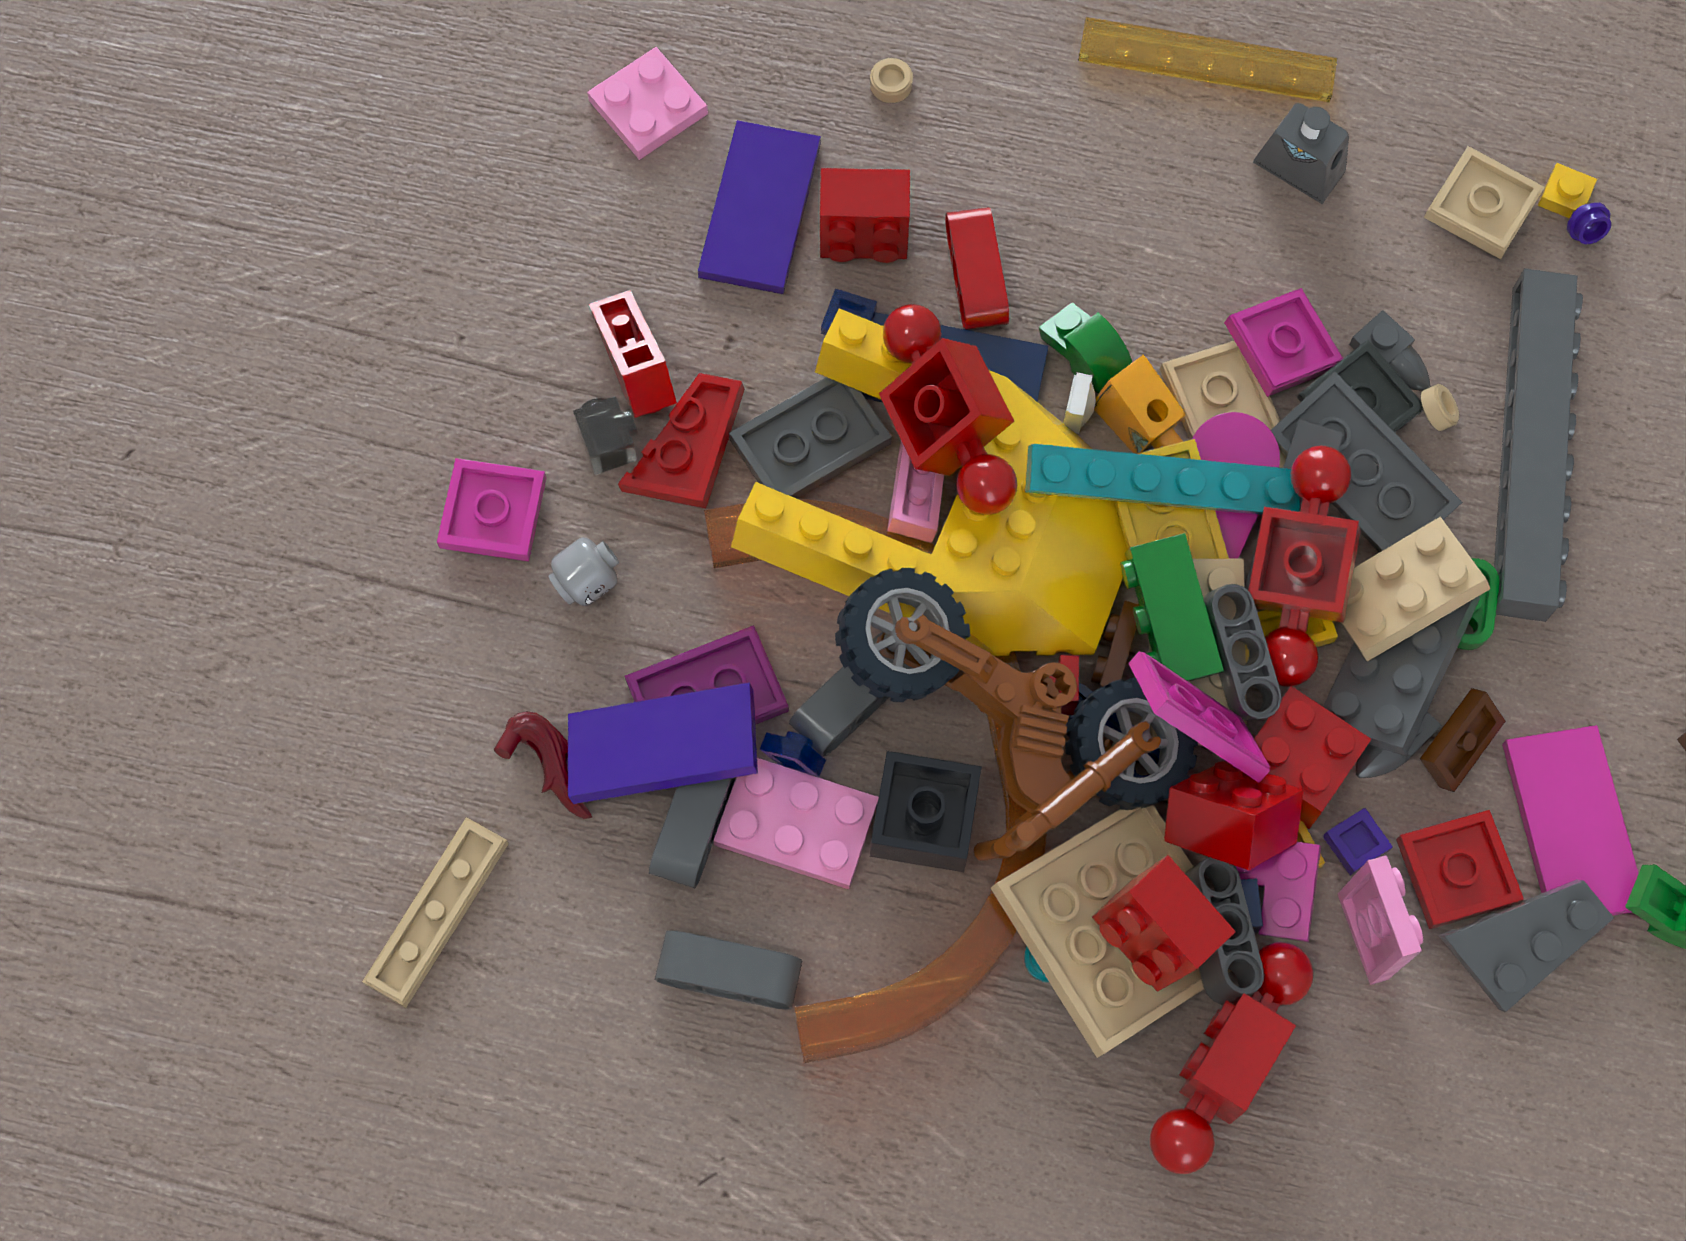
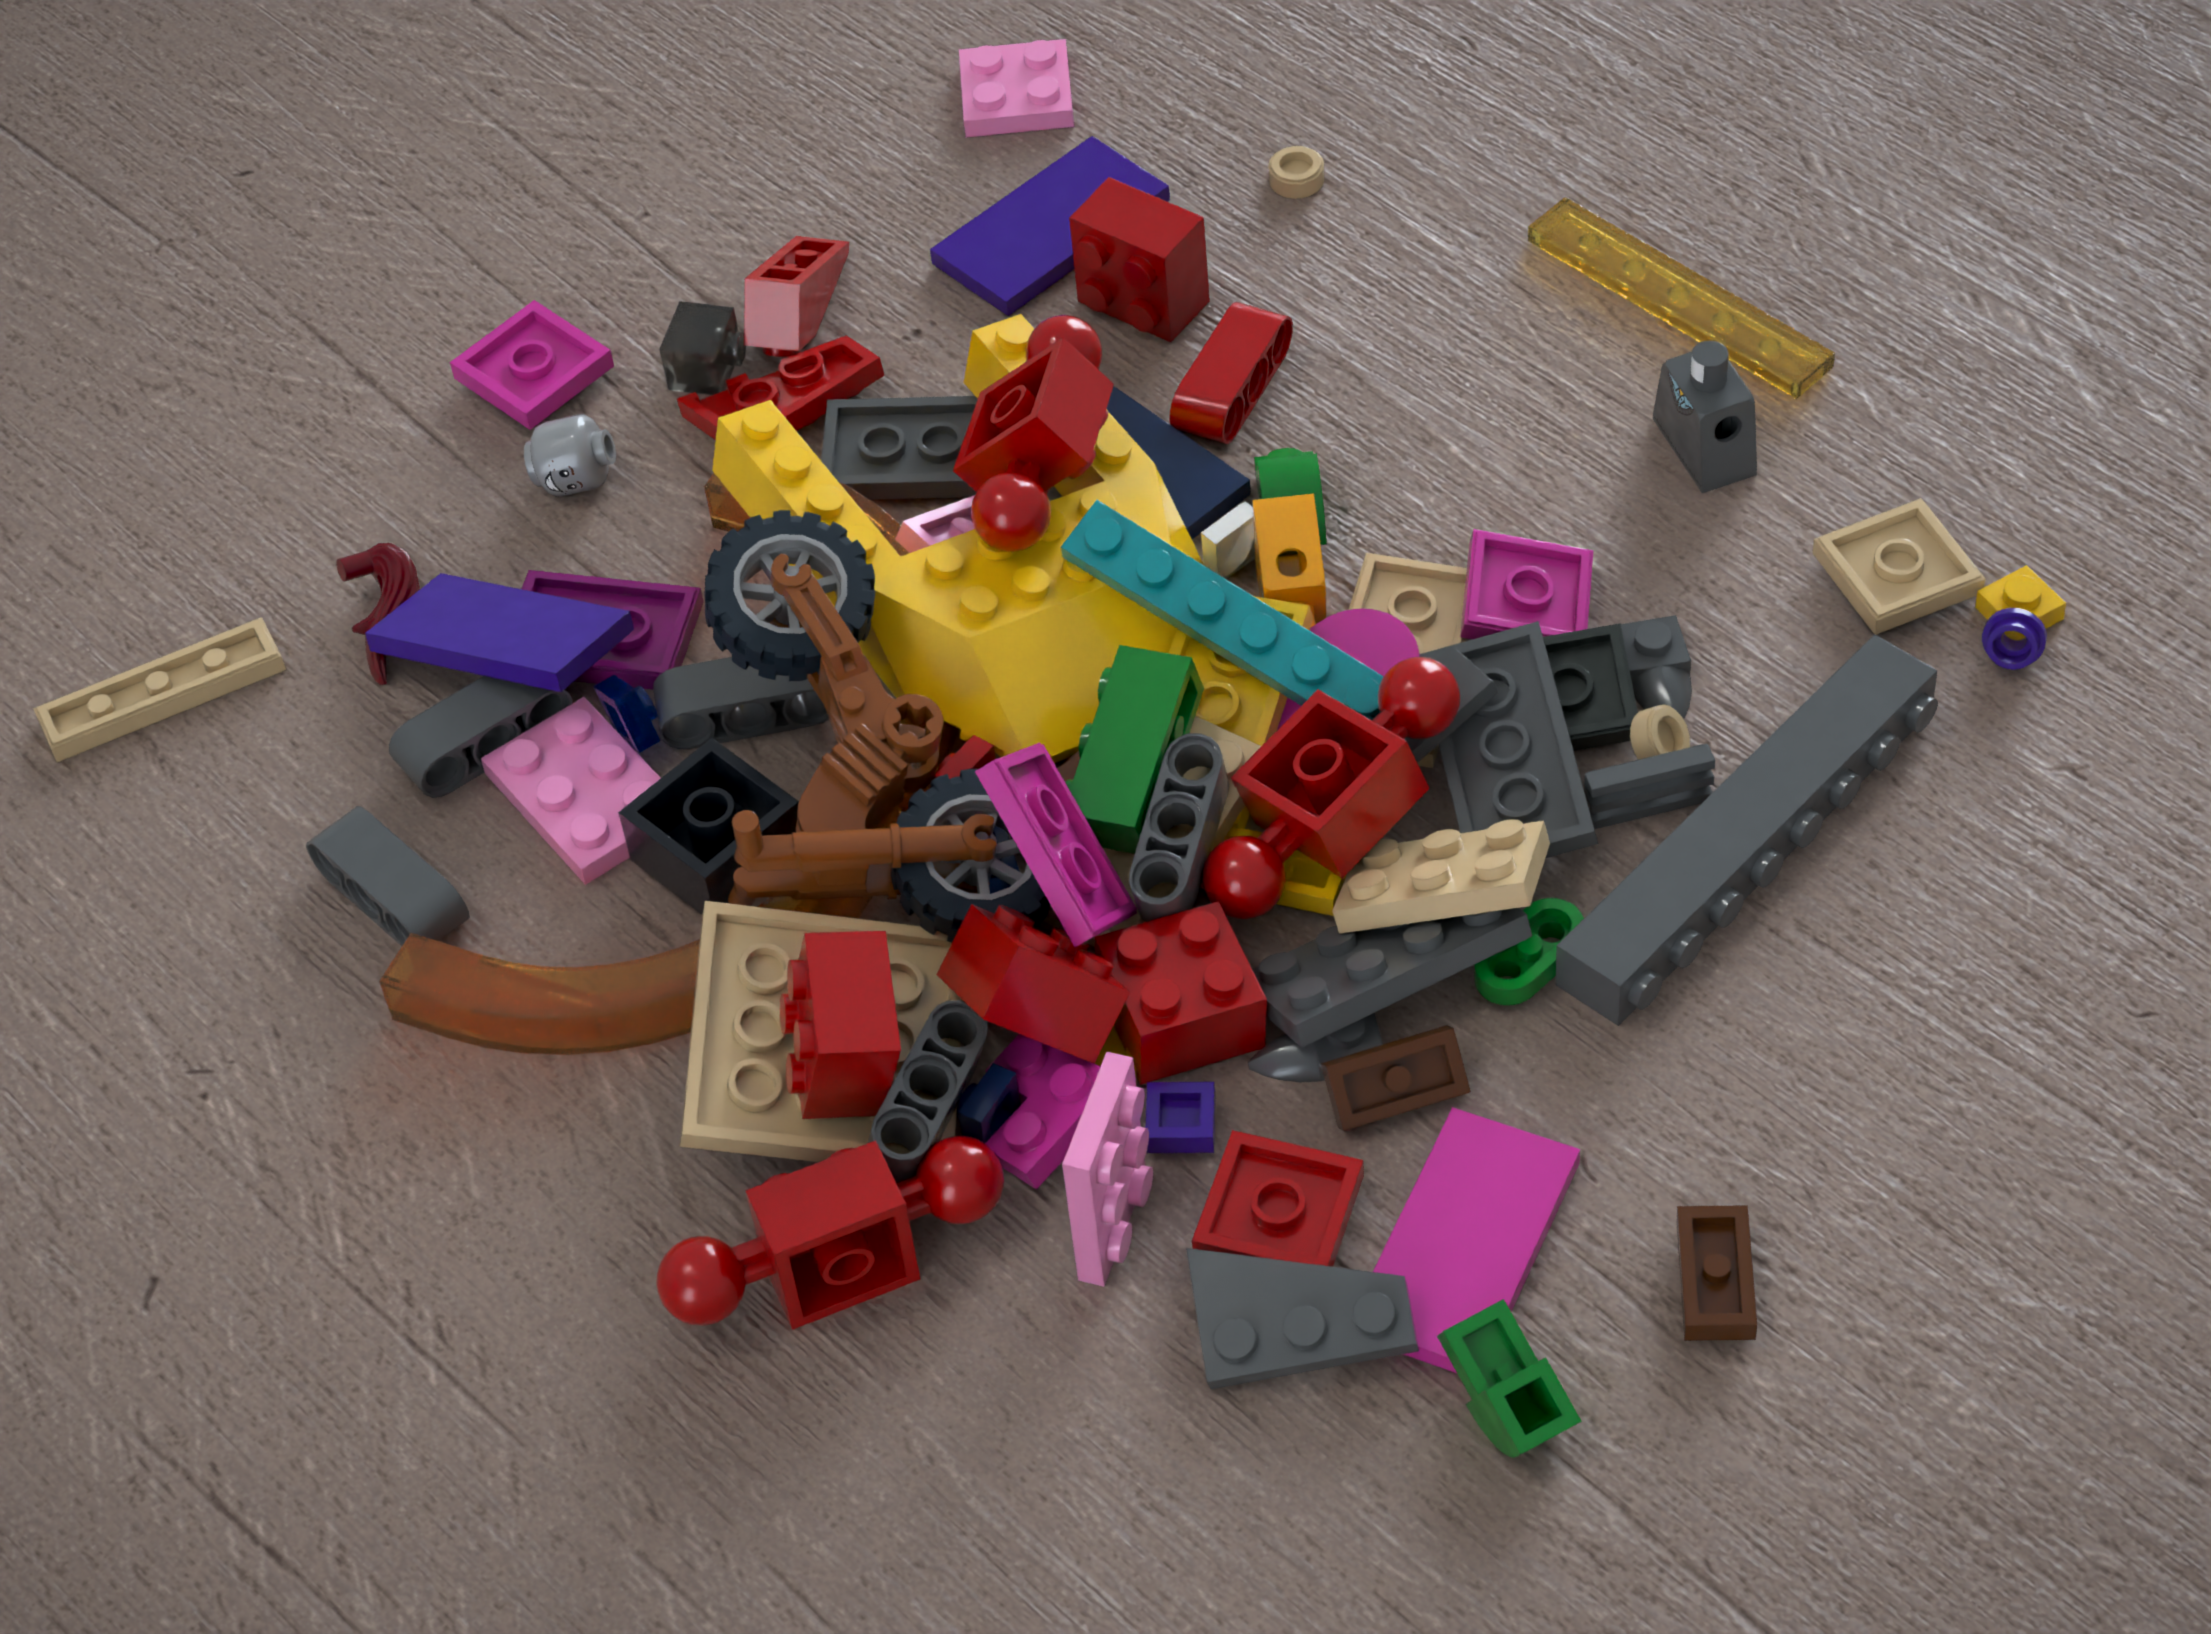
camera: 40 degrees right, 20 degrees down
(1462, 441) = (1649, 785): none -> dark grey tile

